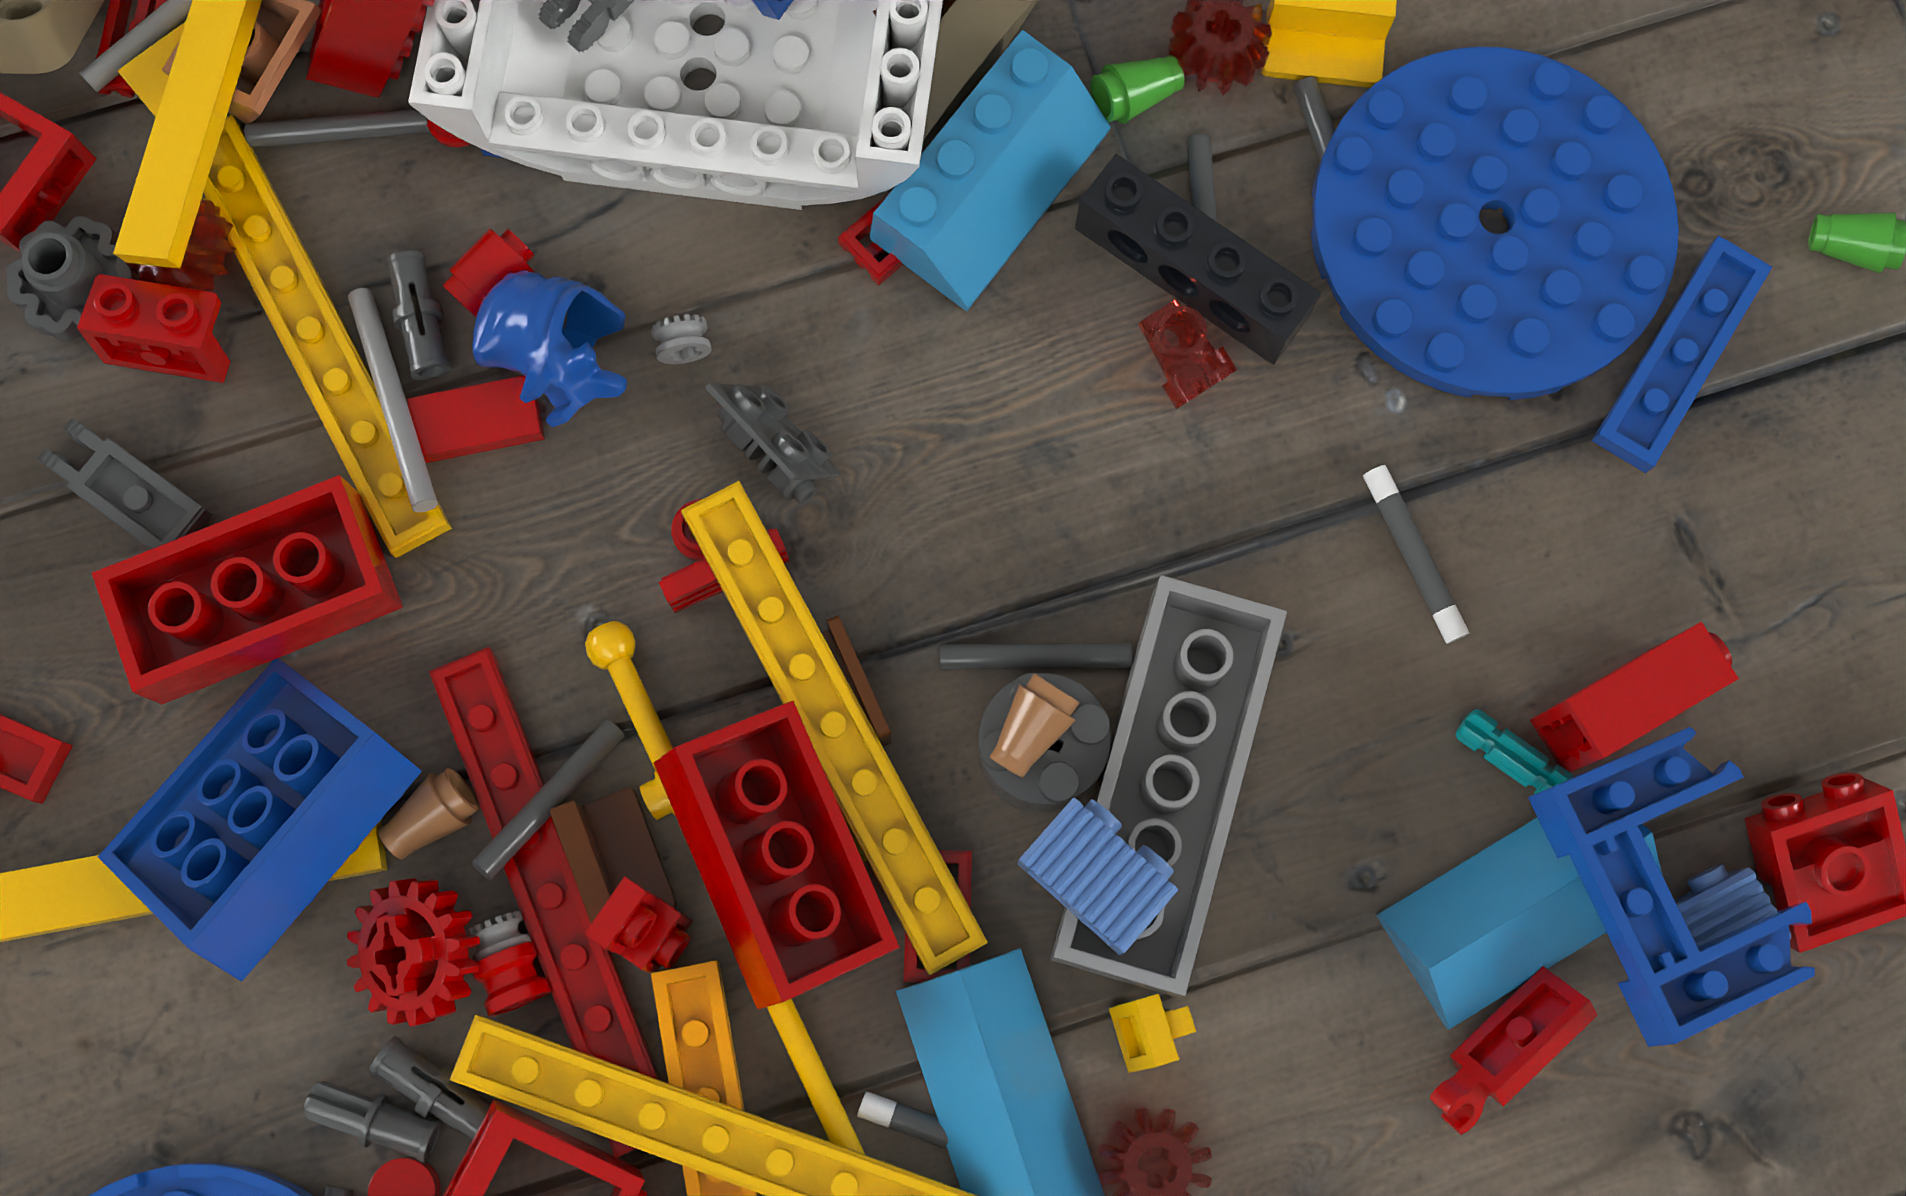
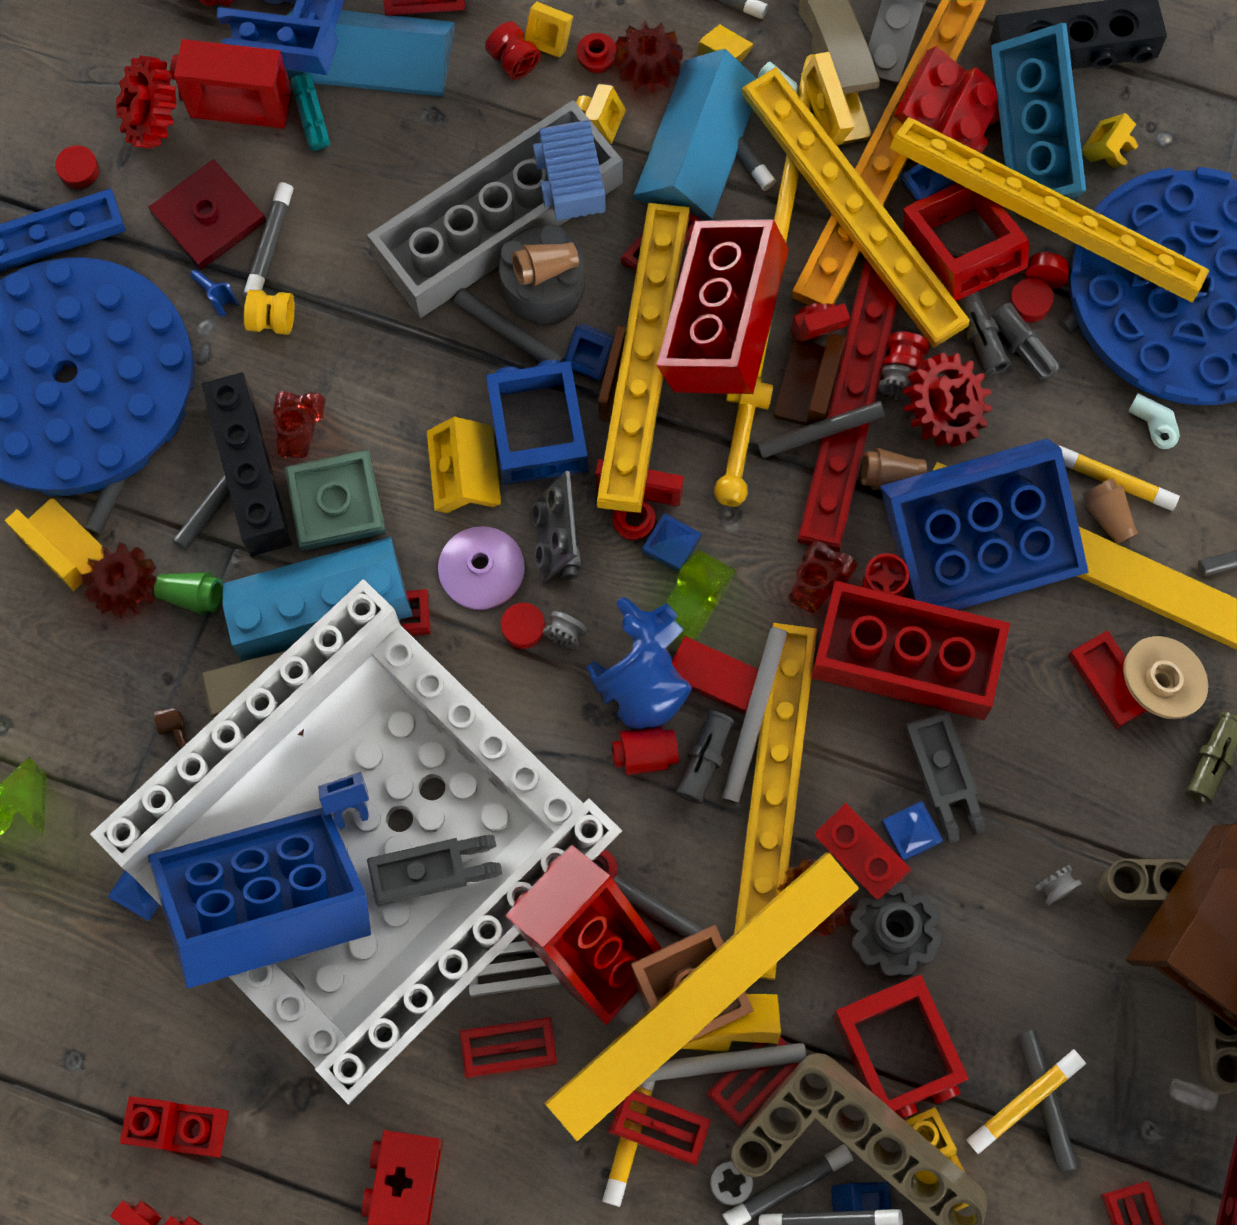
camera: 140 degrees left, 5 degrees down
(119, 963) = (1111, 510): none -> medium nougat cone
(127, 403) = (912, 831): none -> blue tile
(128, 1138) = (1160, 421): none -> light aqua arm
(142, 1017) = (1130, 483): none -> yellow bar
(333, 655) = (886, 570): none -> red wheel
(427, 631) = (818, 574): none -> clear red plate
(562, 495) = (698, 592): none -> clear neon green slope
(637, 535) = (671, 543): none -> blue tile
(737, 318) = (523, 625): none -> red tile
(845, 380) = (487, 586): none -> lavender dish
(859, 512) = (541, 461): none -> blue window
(916, 705) = (589, 351): none -> blue slope
(949, 446) = (463, 464): none -> yellow panel
(1063, 299) = (335, 500): none -> sand green plate
(1208, 1123) = (600, 61): none -> red plate
(1315, 1106) = (548, 29): none -> yellow tile
(1331, 457) = (269, 312): none -> yellow wheel
(1336, 1036) = (511, 48): none -> red wheel
(1413, 439) = (218, 294): none -> blue hand
(1517, 532) = (207, 214): none -> dark red plate
(1715, 591) = (146, 101): none -> red gear
(1723, 474) = (77, 167): none -> red tile

